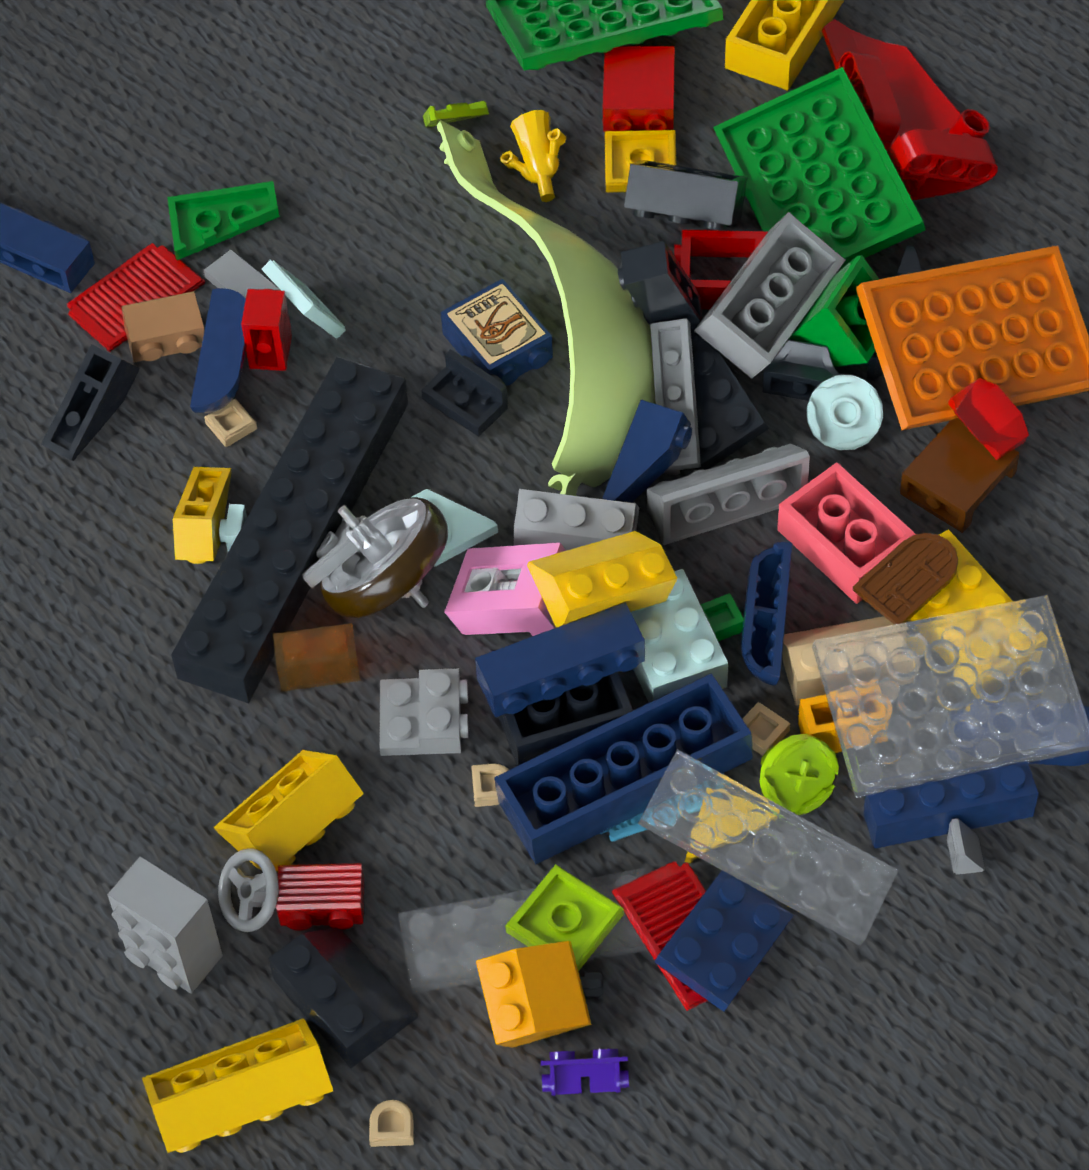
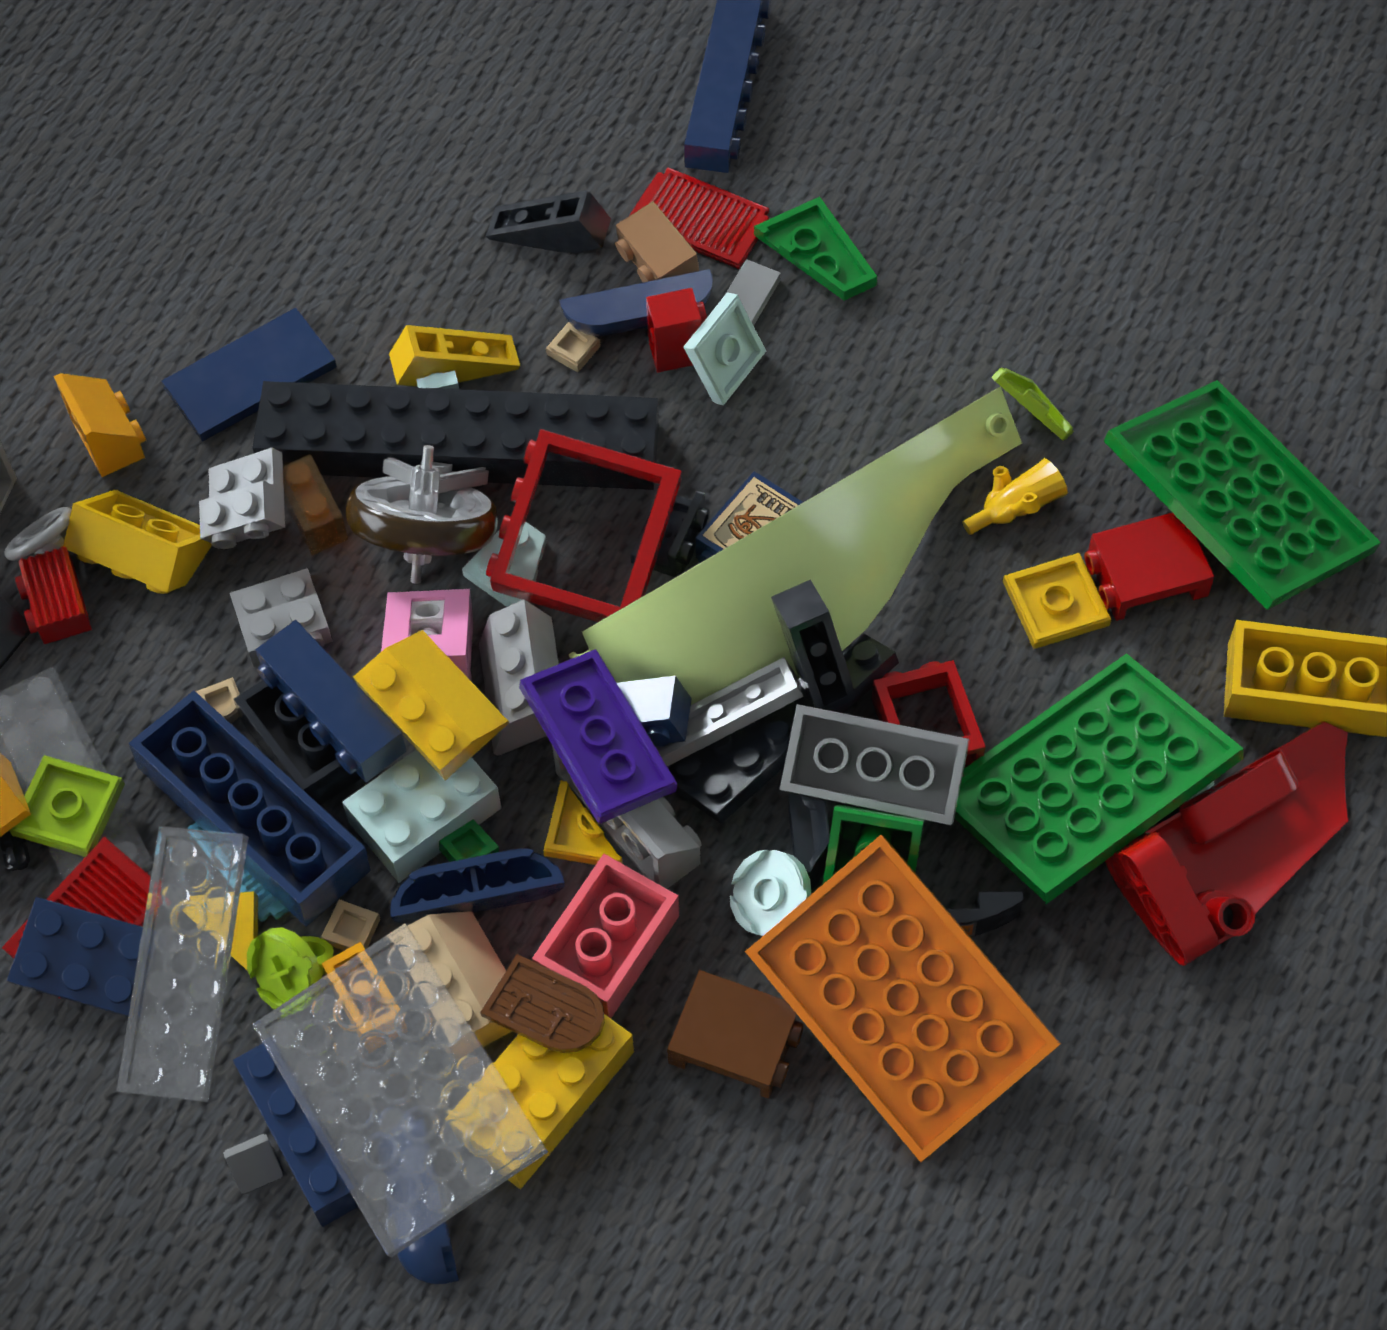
camera: 70 degrees right, 5 degrees up
(134, 685) = (230, 380): none -> dark blue tile
(144, 814) = (101, 422): none -> light orange slope
(293, 702) = (243, 500): none -> light grey plate
(484, 401) = (523, 494): none -> red window
(678, 466) = (597, 736): none -> dark purple tile
(685, 194) = (1003, 647): brick -> none
(729, 542) = (574, 832): none -> yellow tile
(990, 417) = (782, 1030): red slope -> none

